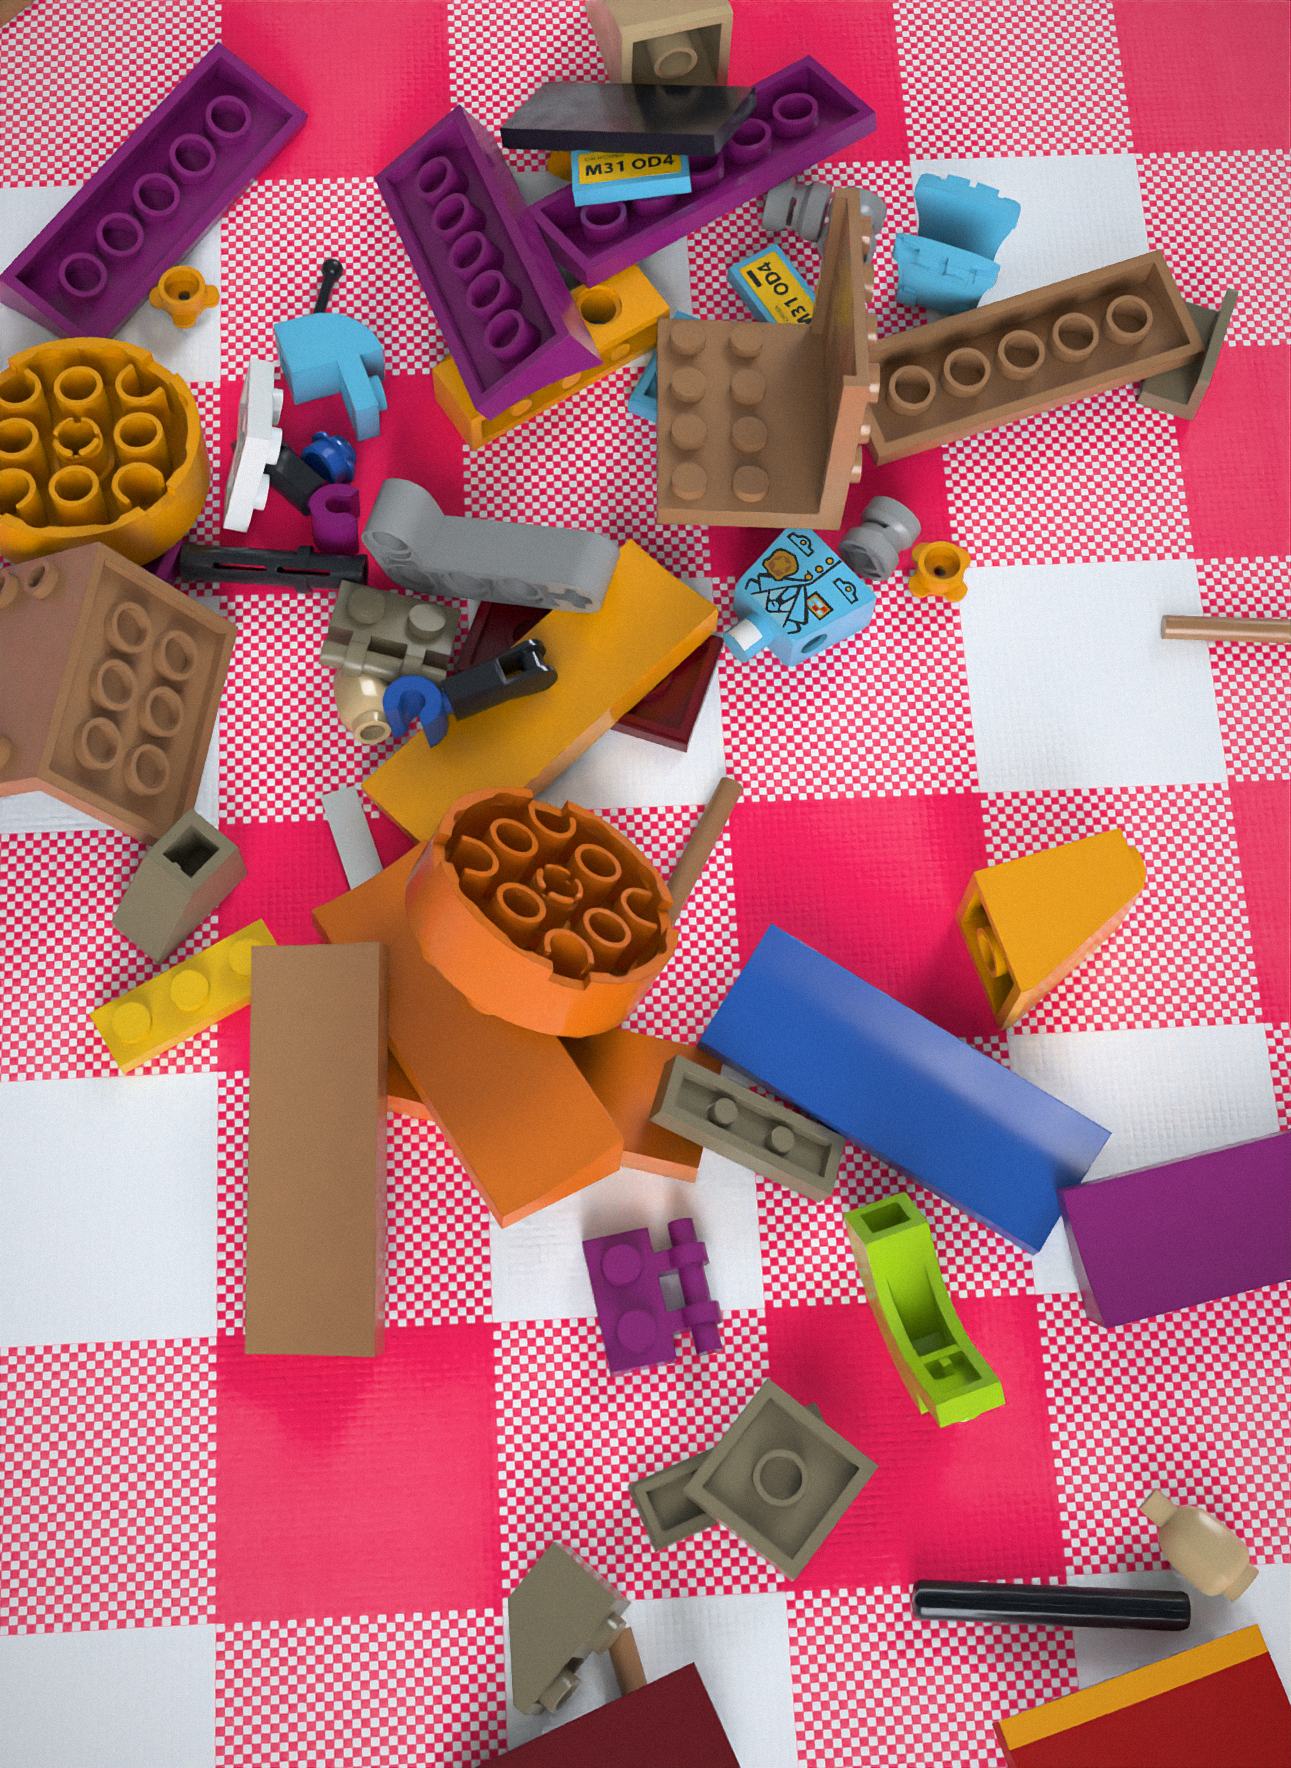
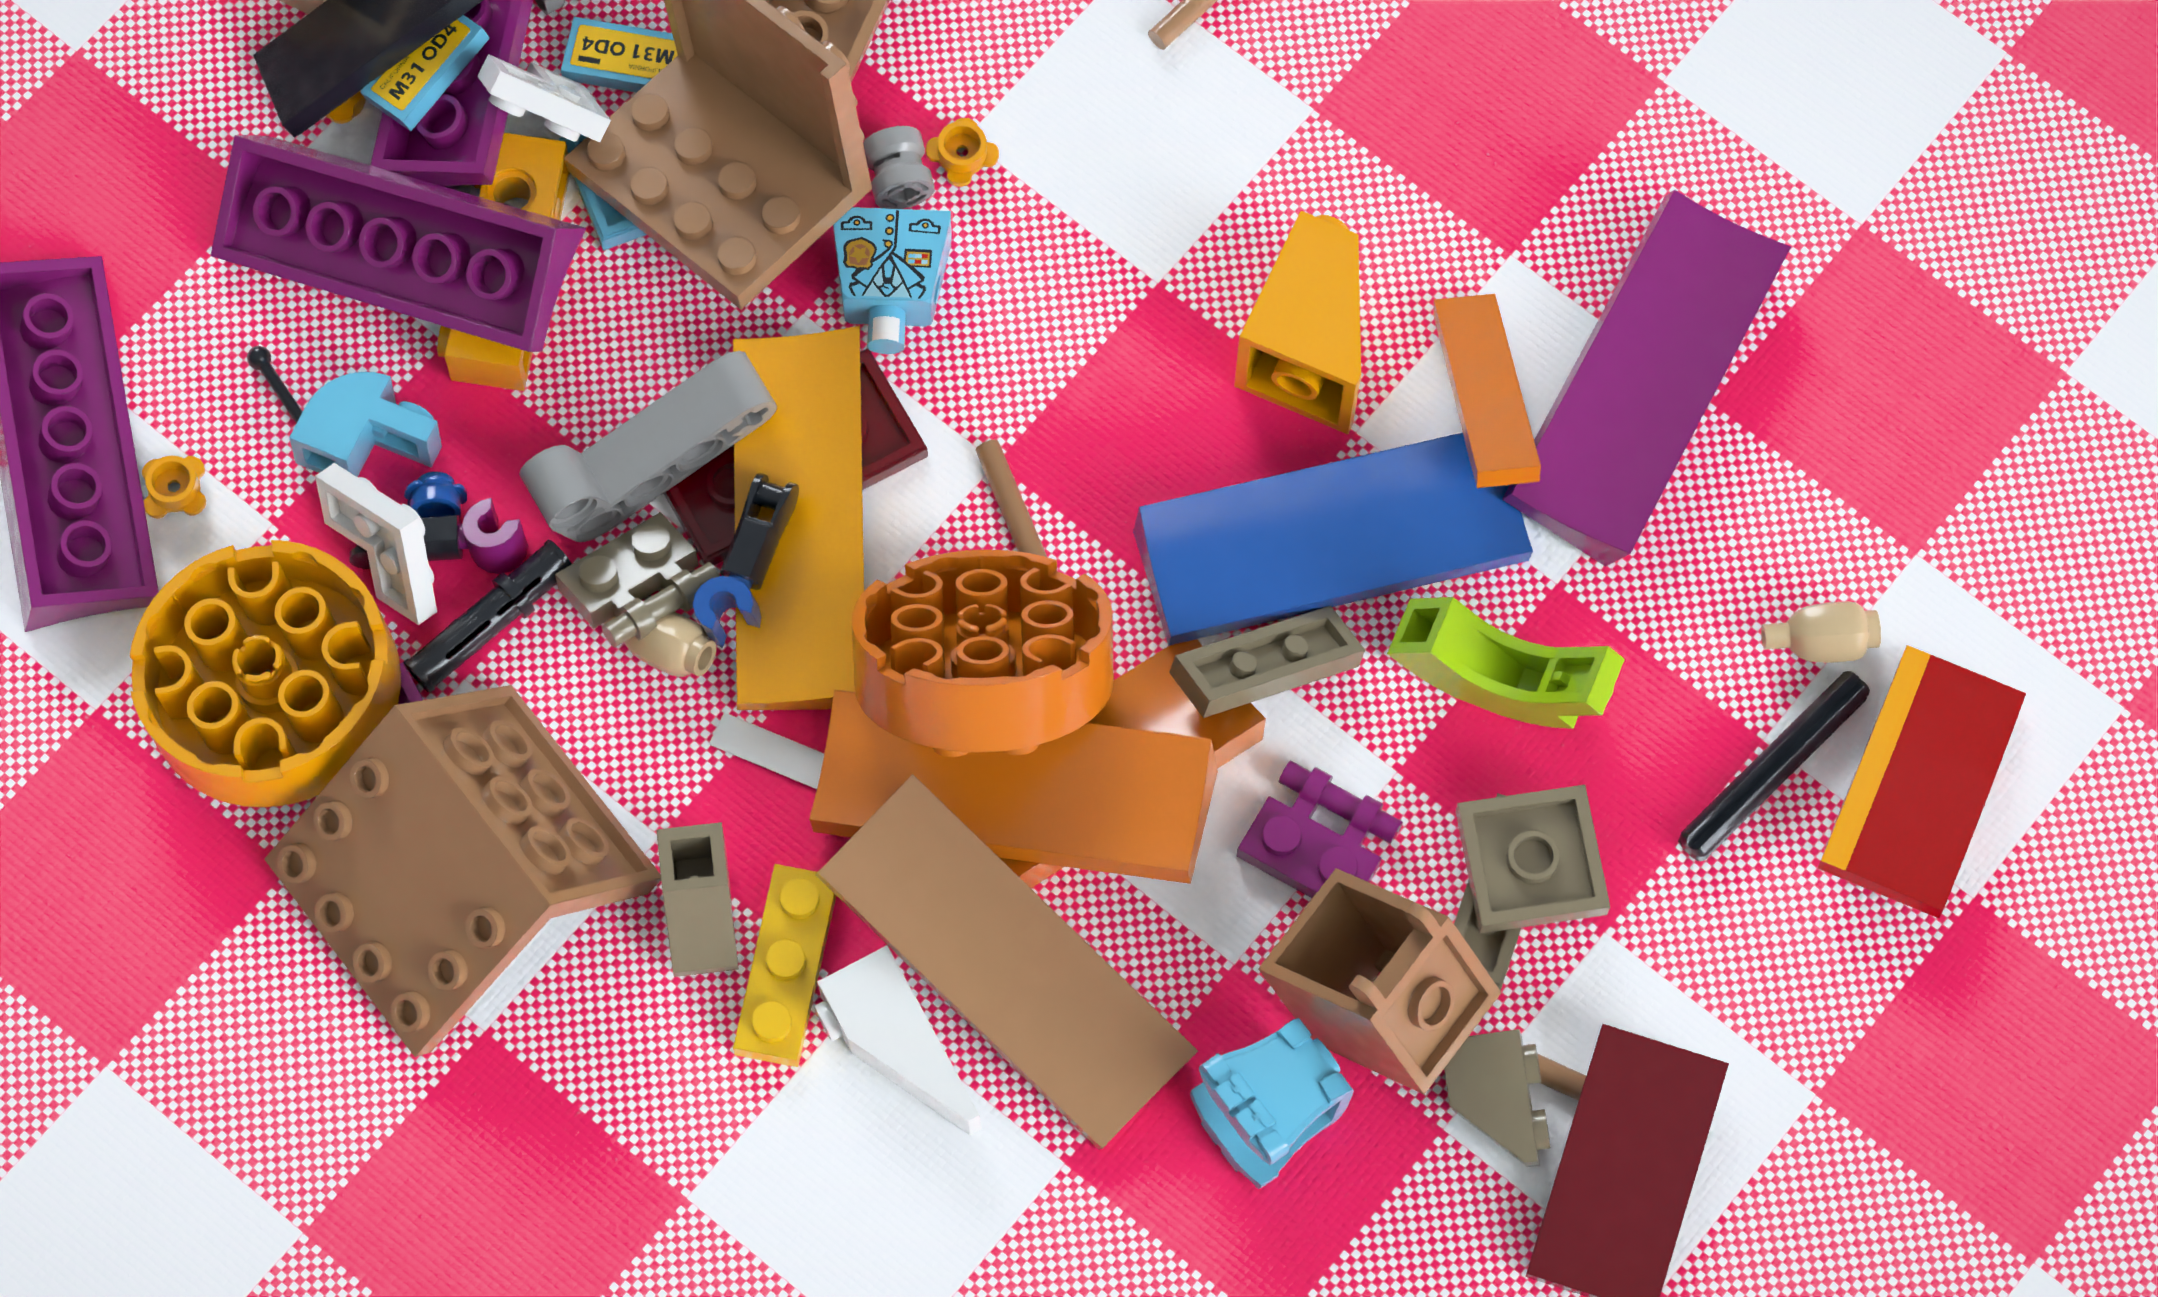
camera: 45 degrees left, 0 degrees up
(199, 1115) = (889, 1031): none -> white slope
(390, 1449) = (1270, 1100): none -> medium azure piece
(553, 1450) = (1415, 1009): none -> medium nougat container
(692, 275) = (563, 102): none -> white plate
(1126, 1100) = (1486, 391): none -> orange tile

